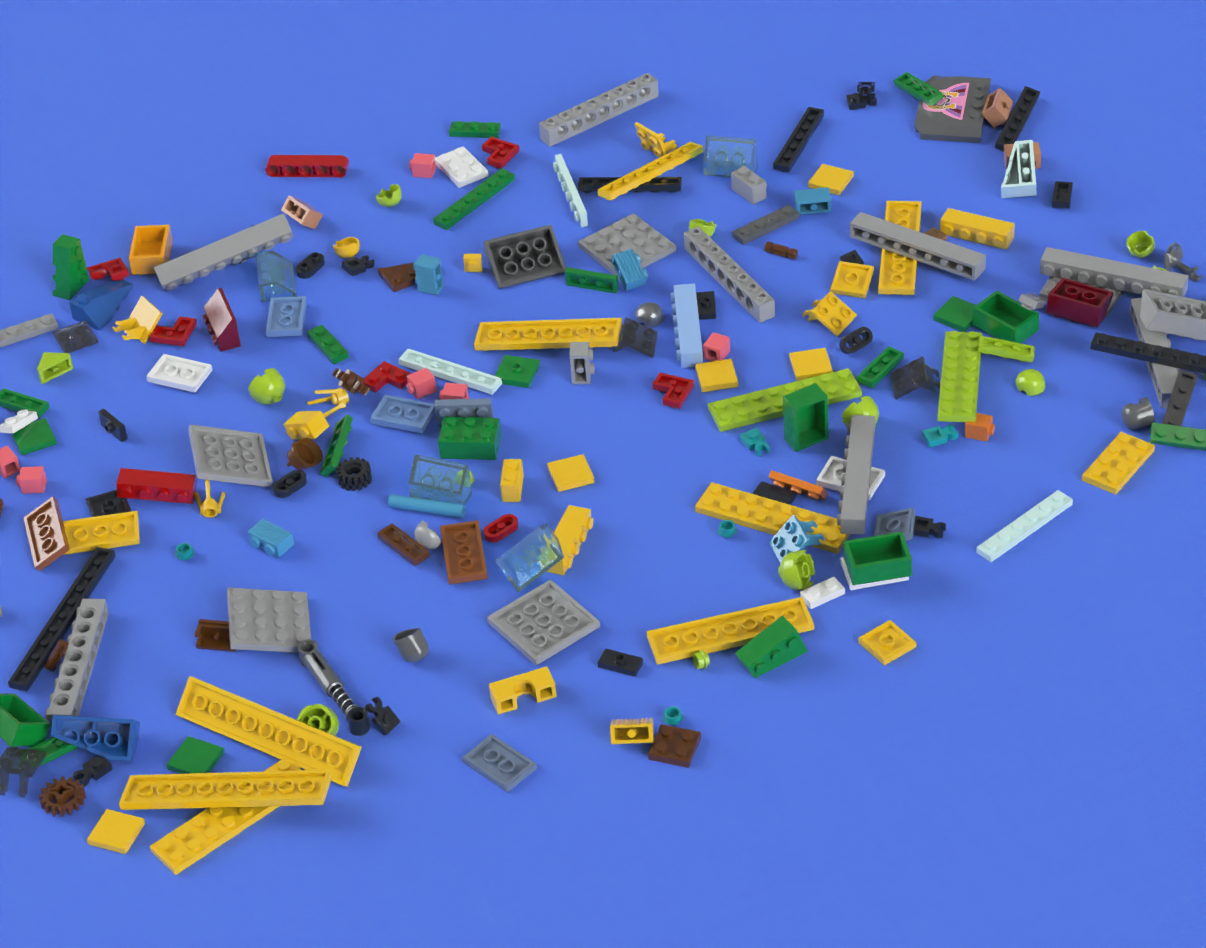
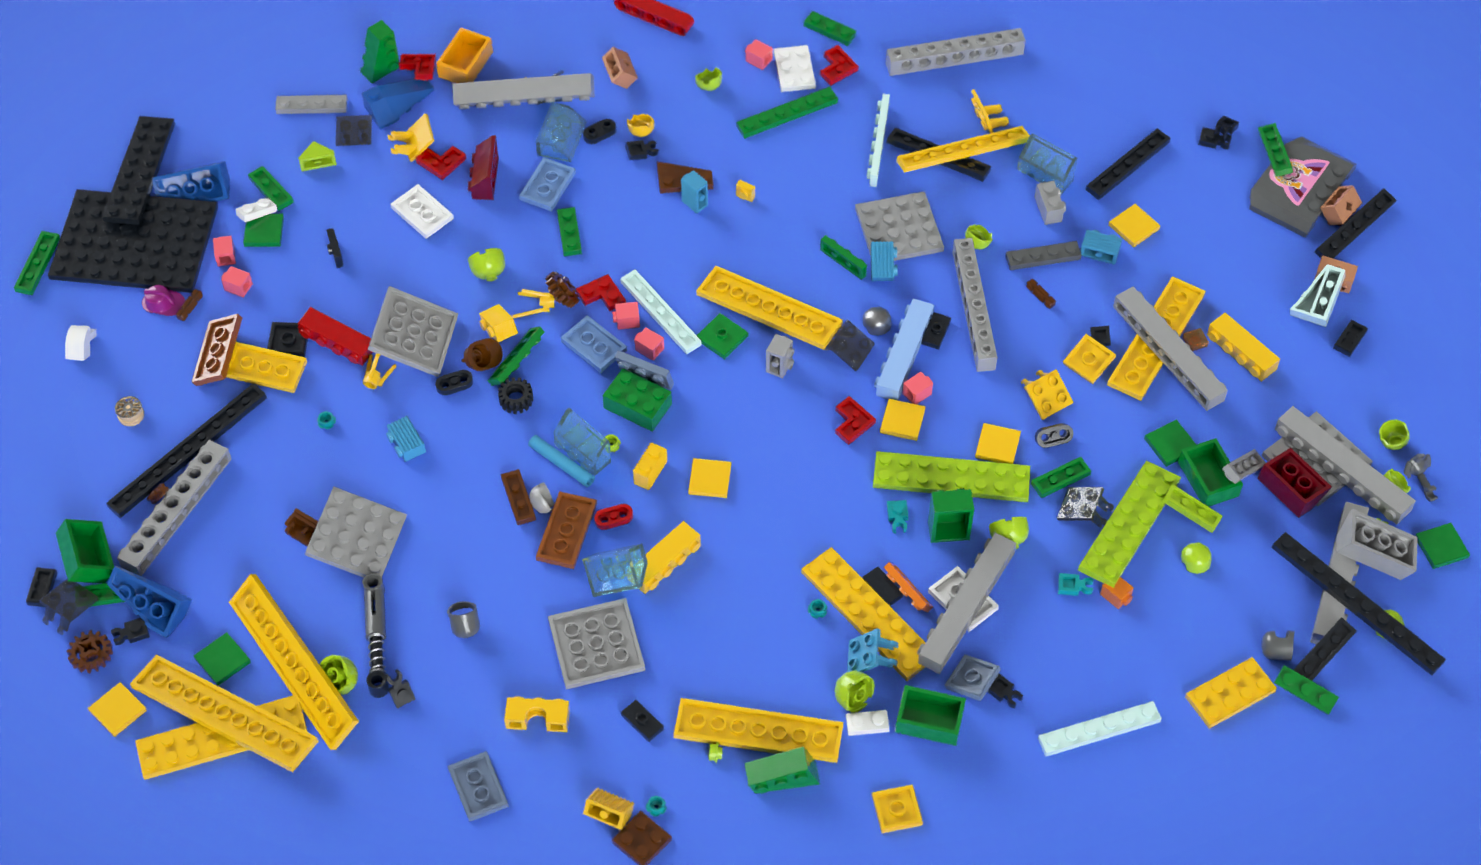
camera: 20 degrees right, 15 degrees up
(524, 256) = (795, 205): dark grey slope -> none

